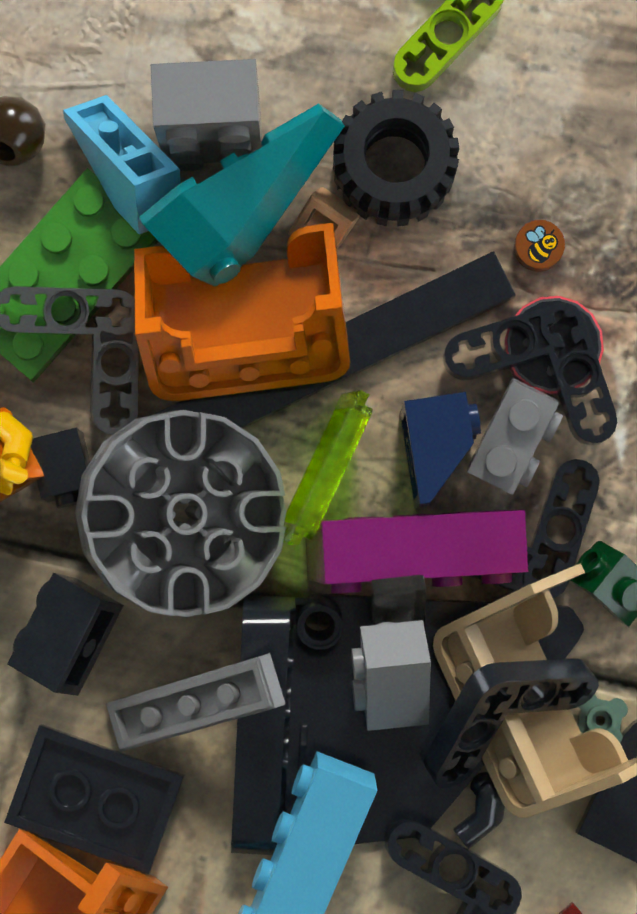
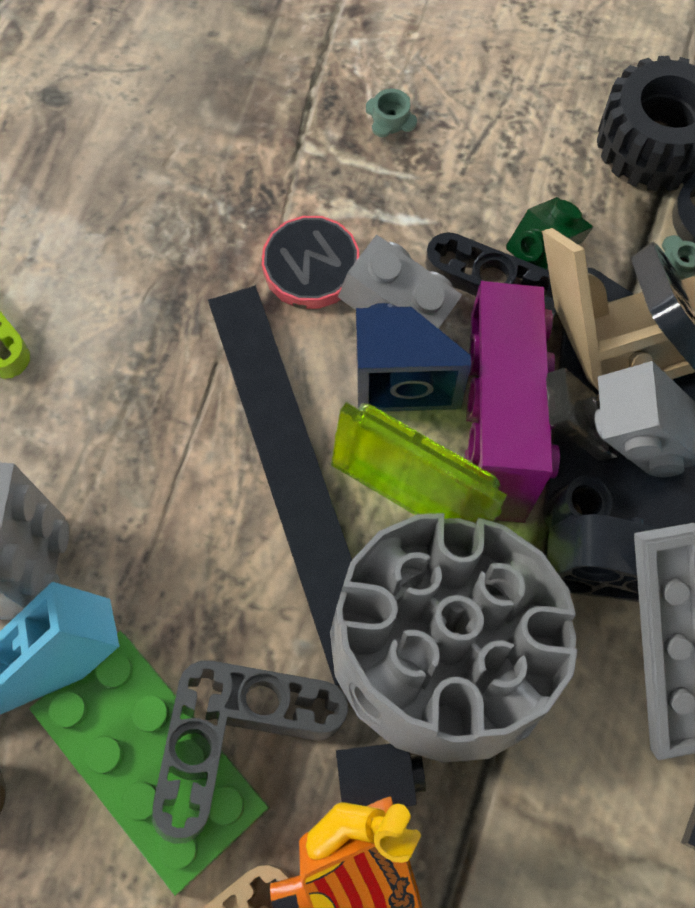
camera: 80 degrees left, 15 degrees down
(64, 634) = (581, 799): black brick -> none
(228, 216) = (119, 546): teal wedge -> none
(255, 333) = (240, 543): orange windscreen -> none
(327, 208) = (148, 460): light nougat slope -> none
(395, 119) = (75, 341): black tyre -> none
(539, 245) = (209, 262): dark orange tile -> none
(543, 344) = (310, 259): black beam -> none

